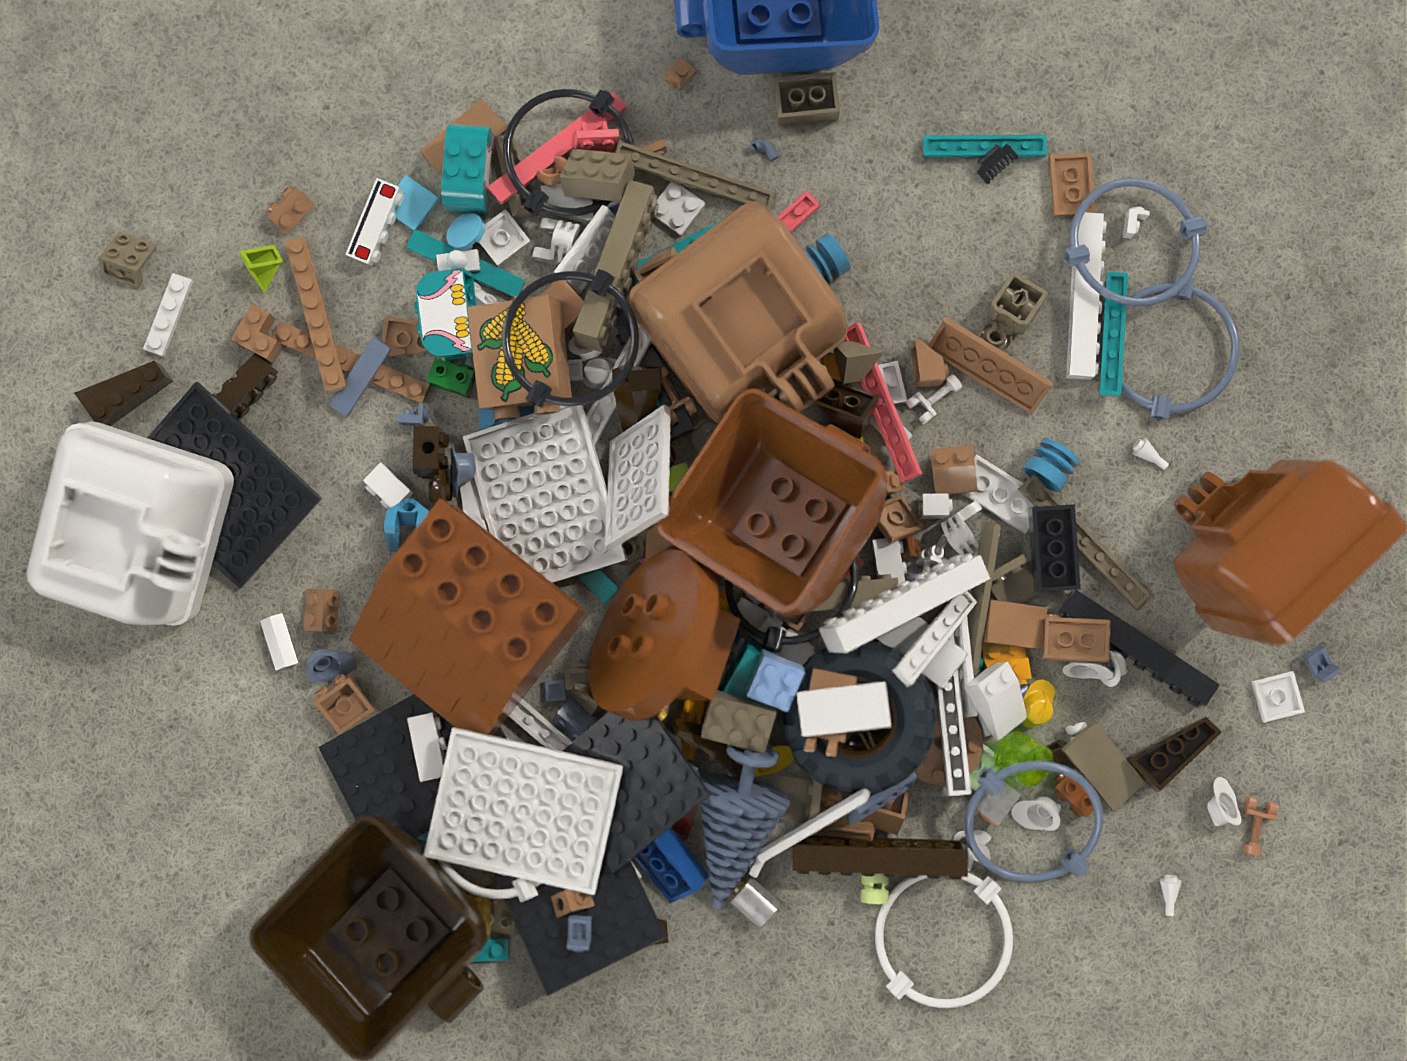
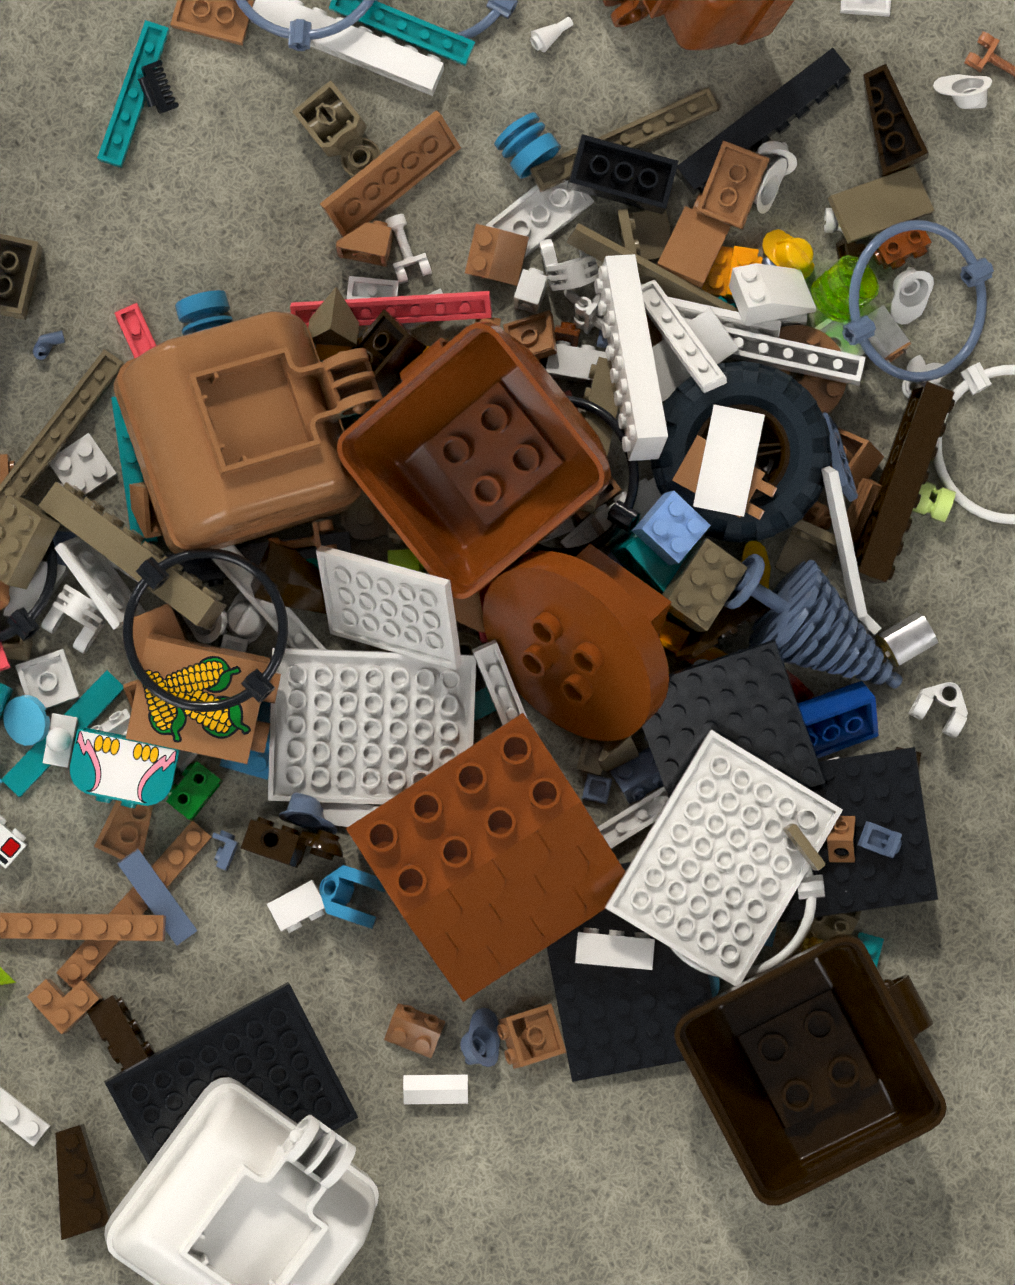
camera: 75 degrees left, 0 degrees up
(552, 873) = (804, 846): none -> dark tan tile
(610, 586) = (498, 681): none -> white plate
(703, 963) = (958, 716): none -> white piece

